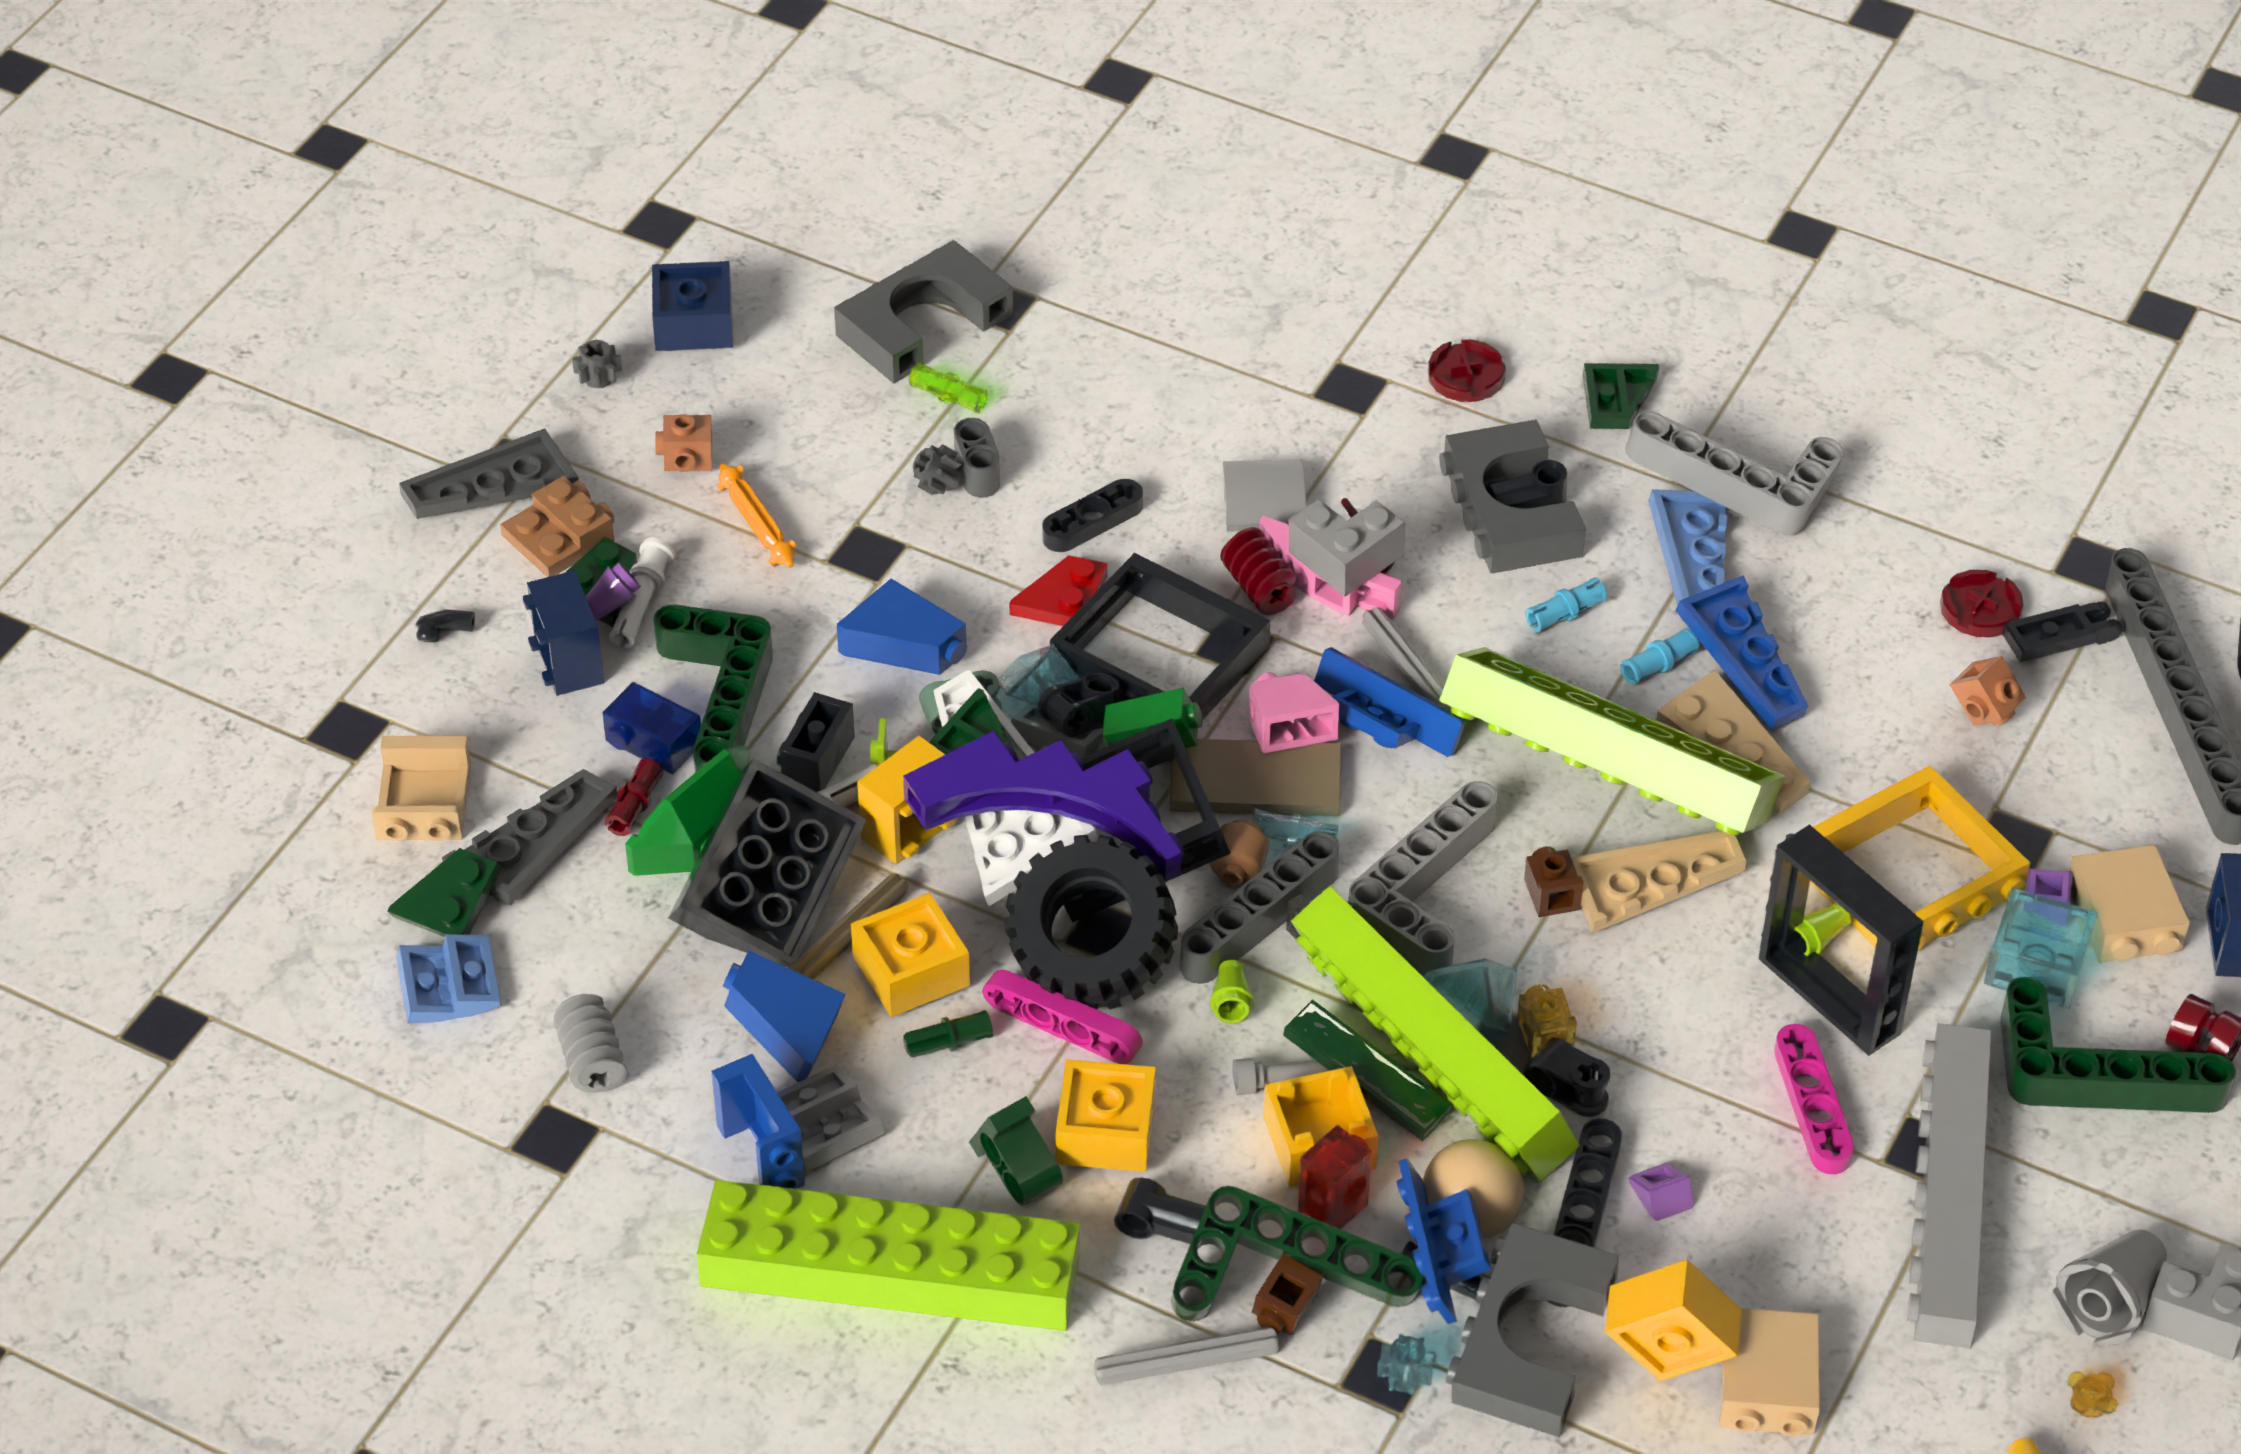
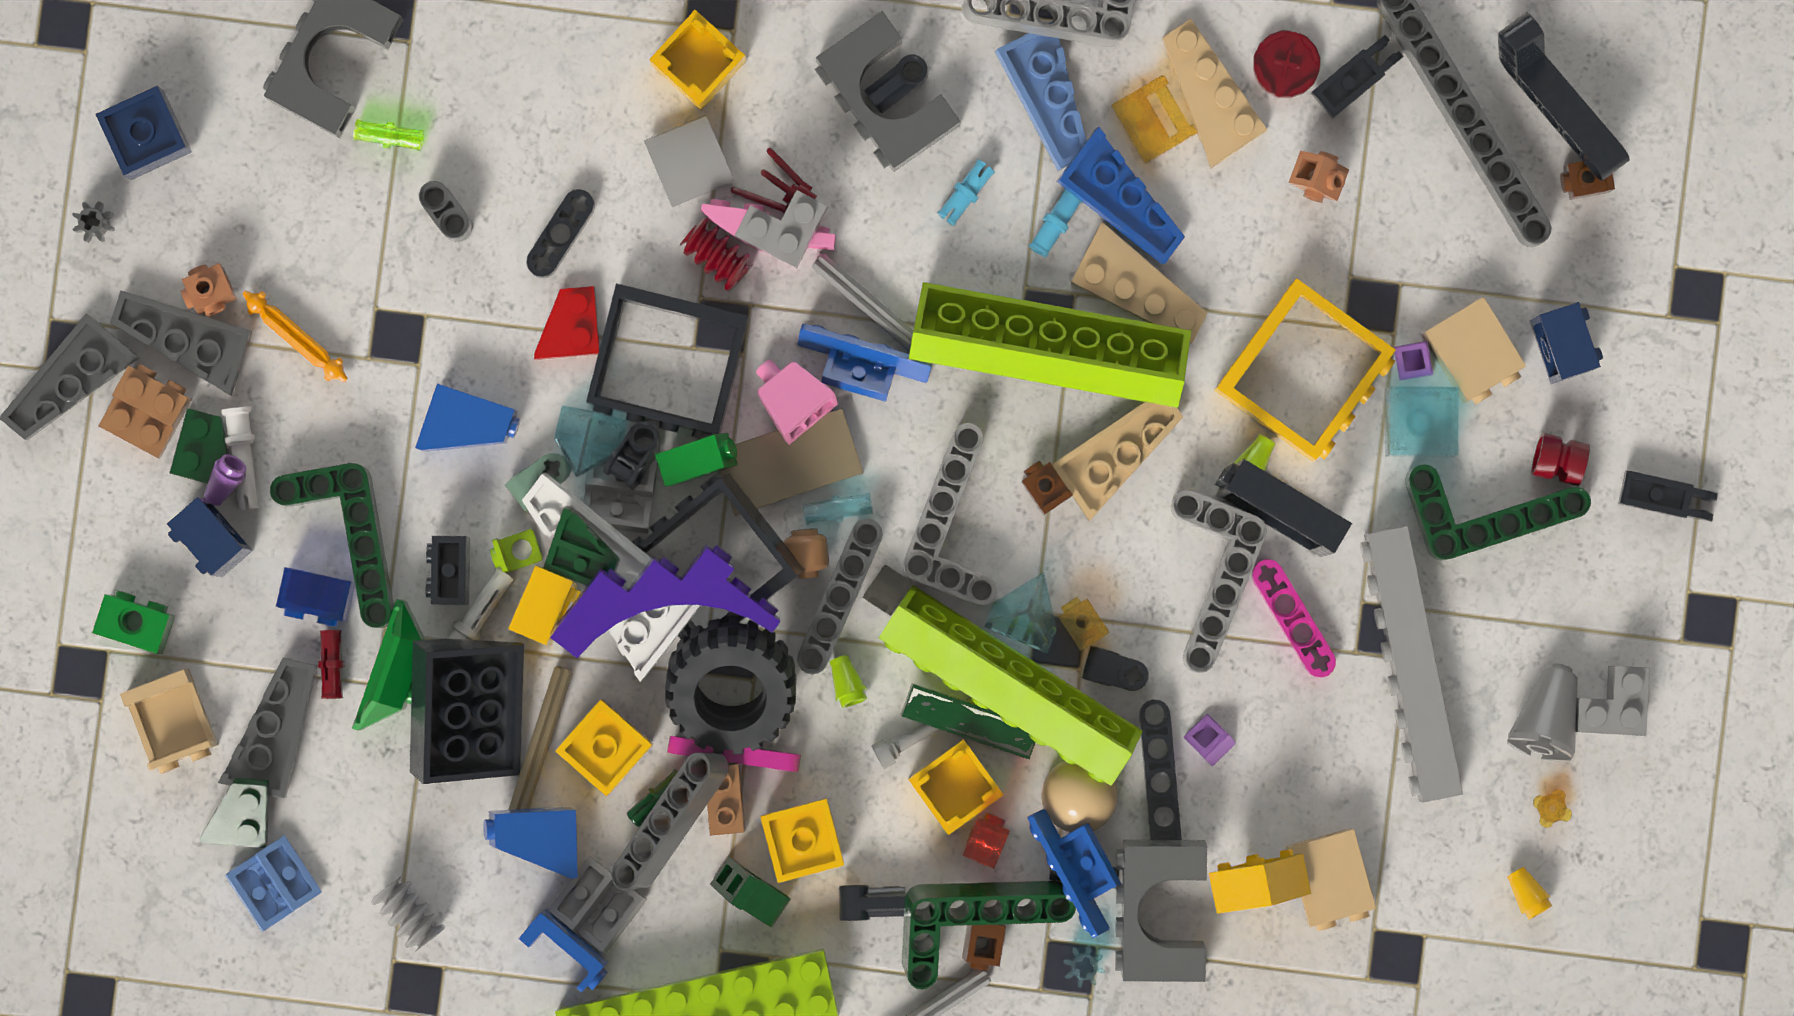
camera: 20 degrees left, 40 degrees up
(435, 693) = (113, 622): none -> green brick
(443, 620) = (98, 543): black arm -> none
(640, 483) = (192, 340): none -> dark grey wing
(937, 469) = (420, 239): dark grey gear -> none
(952, 1035) = (683, 815): none -> dark grey beam
(1029, 1051) = (726, 805): none -> medium nougat brick
(1314, 412) = (698, 60): none -> yellow container
(1773, 997) = (1224, 574): none -> light grey beam
(1797, 611) = (1144, 125): none -> clear yellow plate
(1885, 609) = (1215, 102): none -> tan wing

